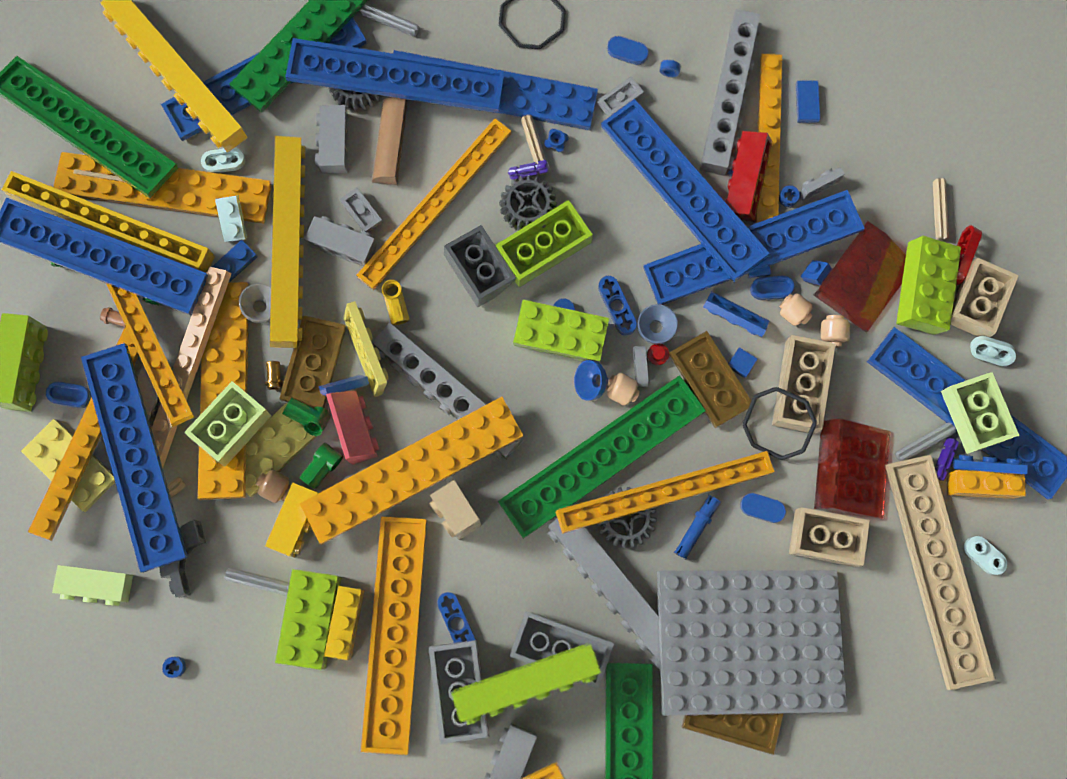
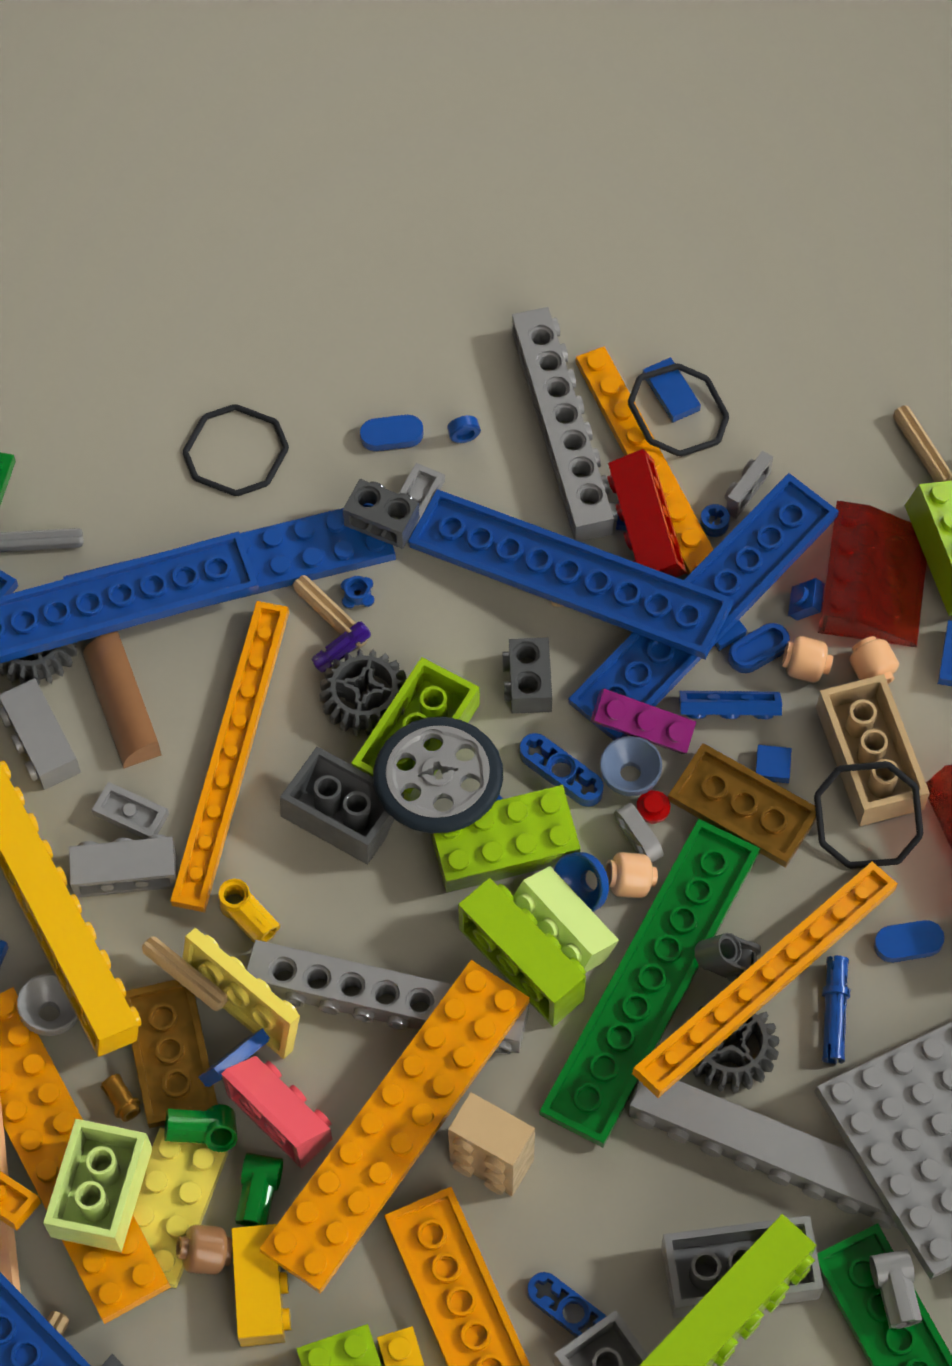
camera: 25 degrees left, 15 degrees down
(341, 322) = (184, 973): none -> tan axle
(517, 295) = (467, 806): none -> wedge
(534, 404) = (522, 951): none -> lime brick
(569, 397) = (566, 918): none -> yellowish green brick
(588, 100) = (377, 520): none -> dark grey brick
(631, 240) = (532, 675): none -> dark grey brick
(642, 703) = (894, 1277): none -> light grey piece
(651, 466) = (726, 955): none -> dark grey piece
(678, 301) = (643, 721): none -> magenta plate
(832, 116) = (714, 393): none -> black piece

